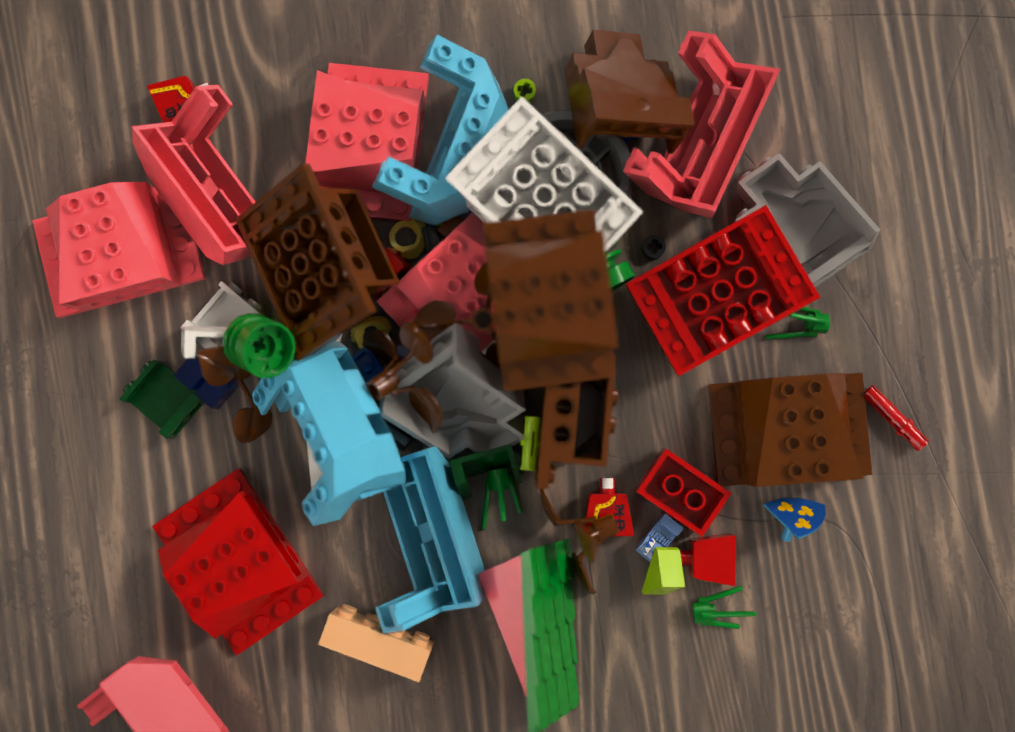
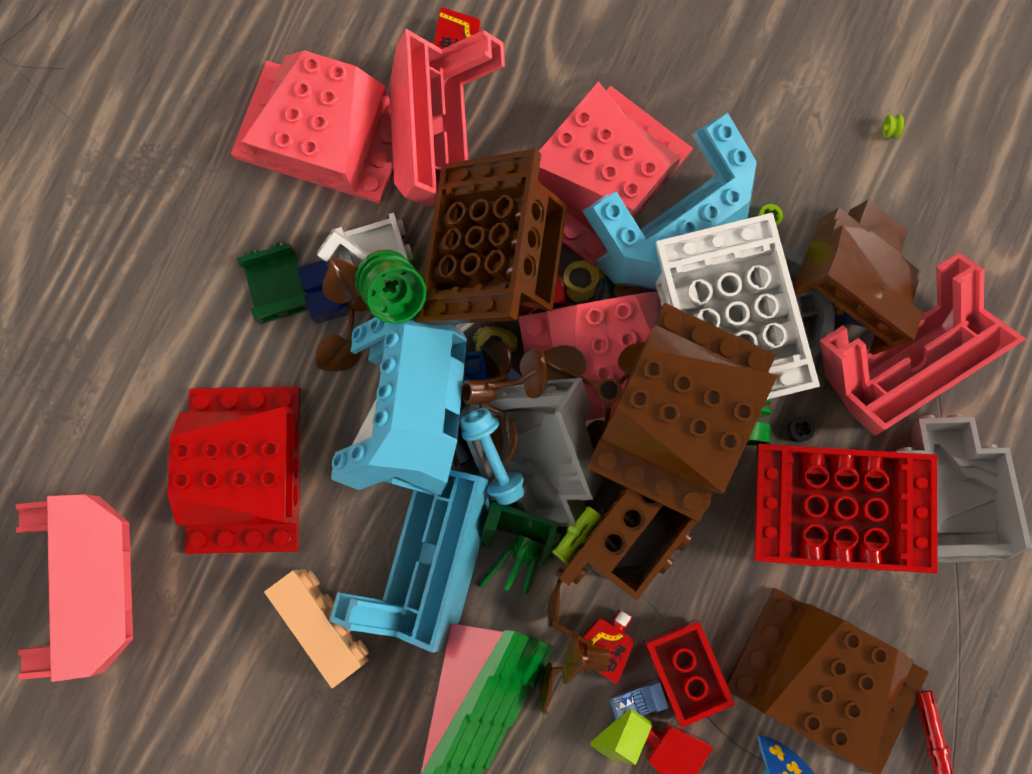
camera: 30 degrees right, 5 degrees down
(401, 410) = (506, 486): none -> medium azure piece
(813, 321) = (911, 592): green plant -> none

